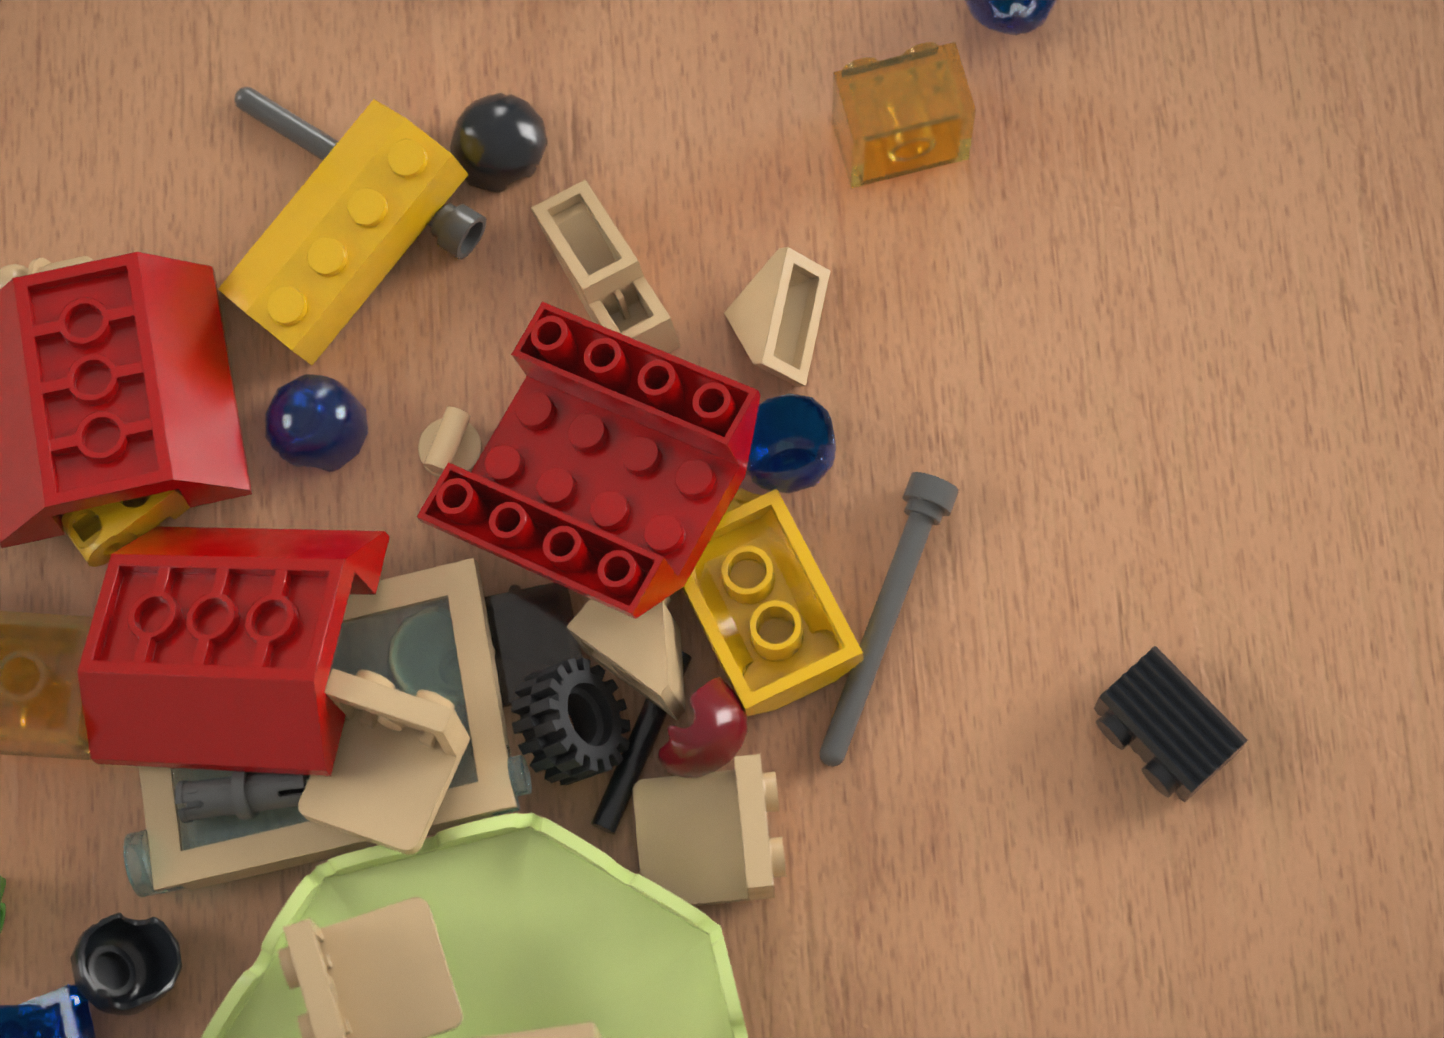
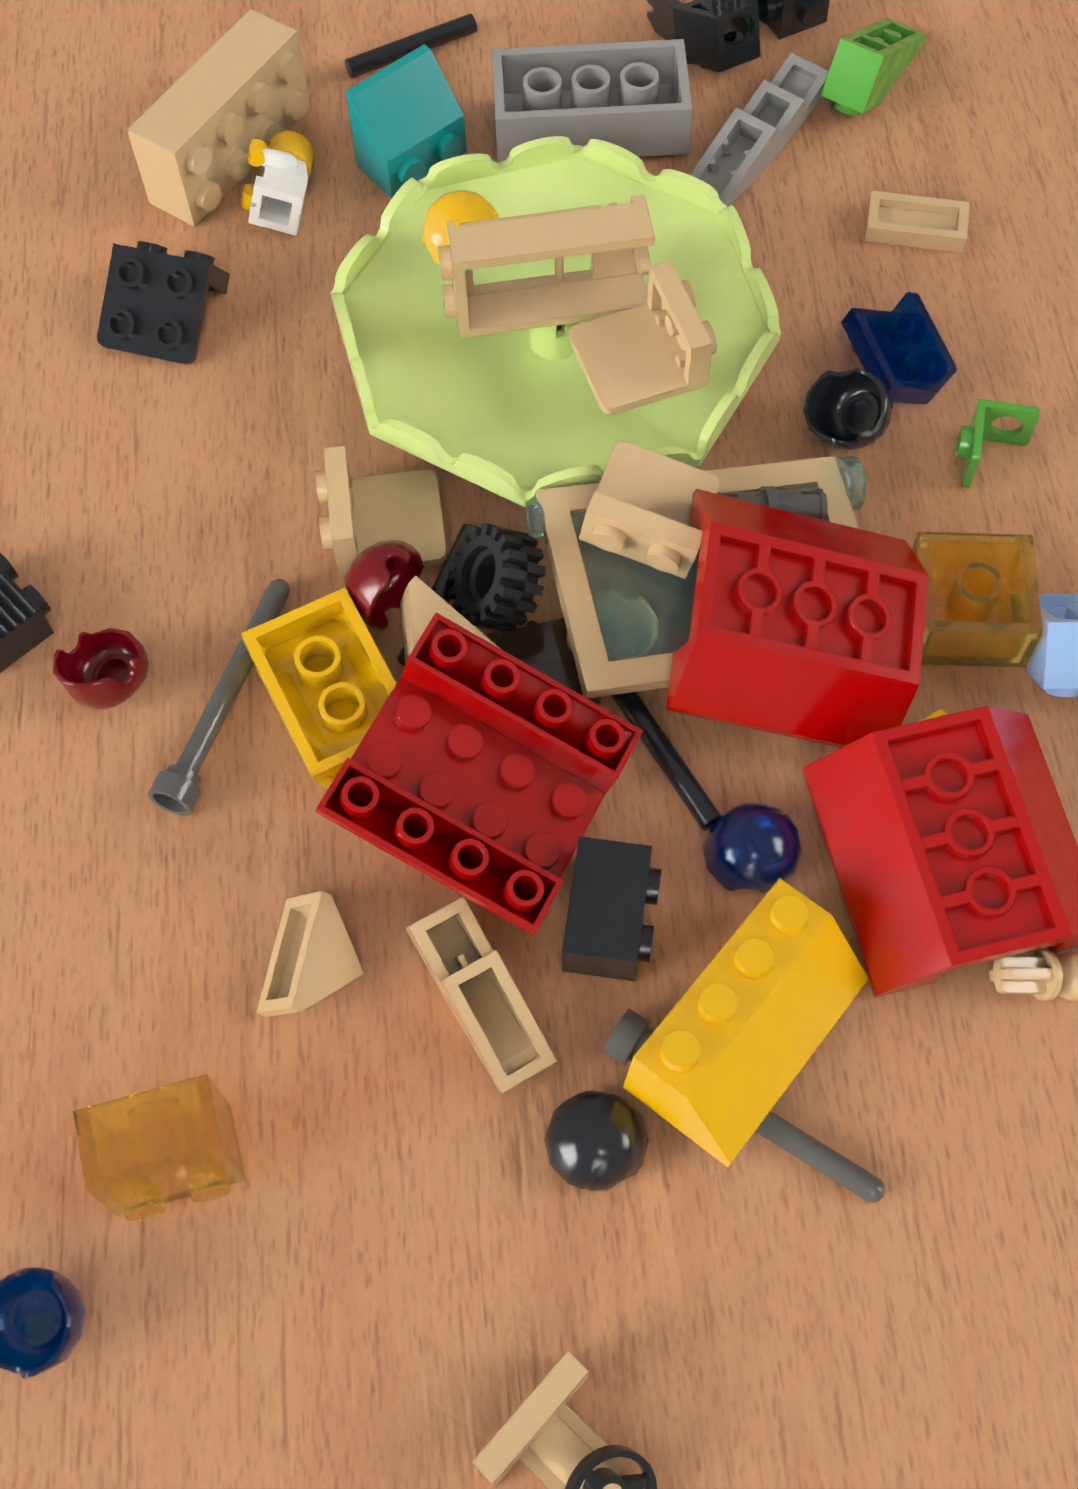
camera: 175 degrees right, 10 degrees down
(385, 511) = (669, 760): none -> black bar
(451, 441) = (624, 819): tan plate -> none
(469, 350) = (607, 909): none -> black brick
(791, 444) = (291, 826): clear blue hair -> none
(1024, 636) = (102, 668): none -> dark red hair

